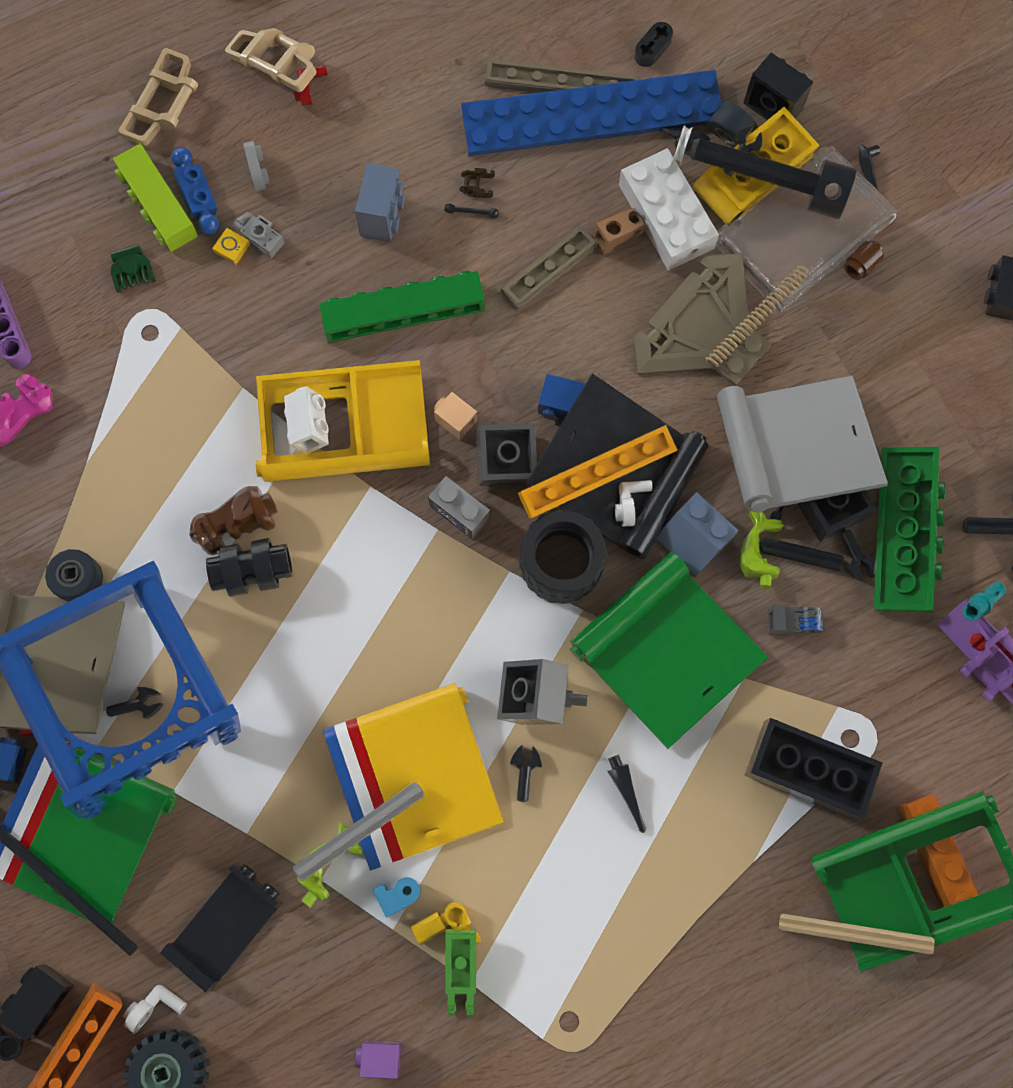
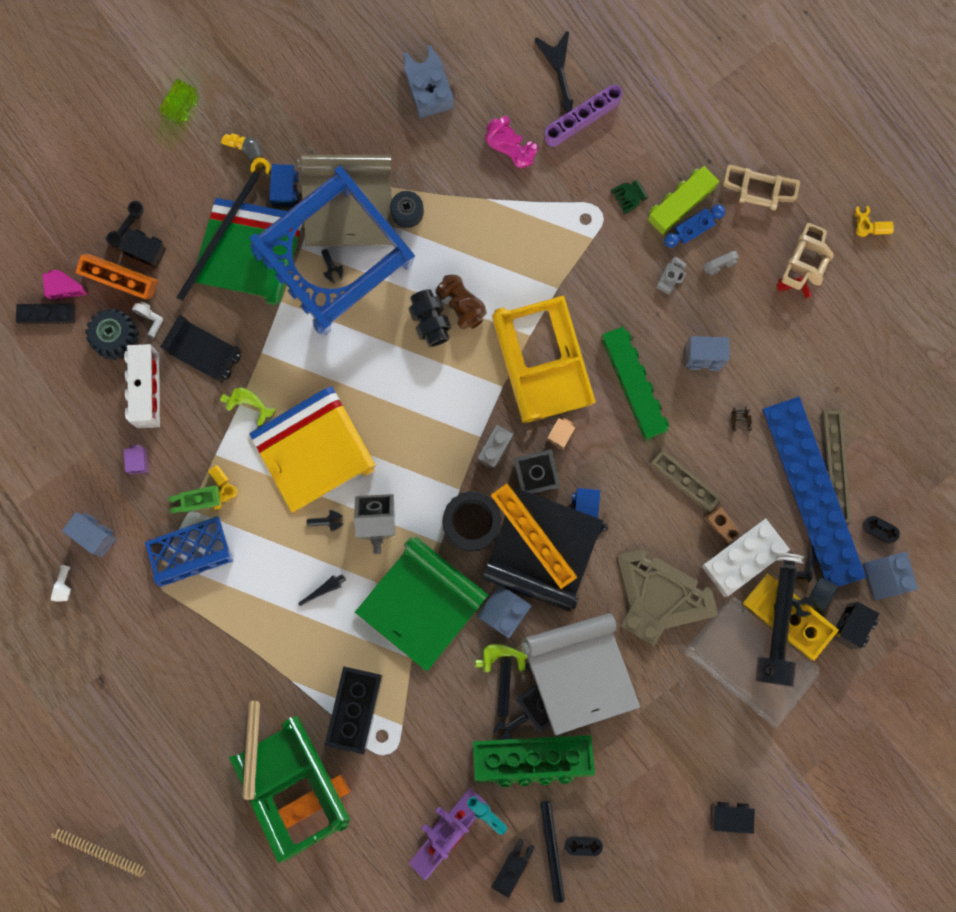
camera: 80 degrees right, 5 degrees up
(231, 246) = (658, 259): yellow tile -> none
(263, 1029) = (143, 386): none -> white brick
(306, 420) = (538, 334): white brick -> none
(358, 831) = (270, 421): light grey axle -> none
(402, 895) = (234, 454): dark azure leg -> none
(450, 208) = (720, 434): black hinge -> none
(564, 995) = (192, 567): none -> blue fence
(625, 510) = (510, 559): white plate -> none
(717, 41) = (890, 576): none -> sand blue slope
(776, 302) = (689, 647): tan piece -> none
(795, 620) = (455, 688): dark grey leg -> none
(864, 259) = (734, 707): reddish brown brick -> none
(866, 162) = (813, 702): black bar -> none

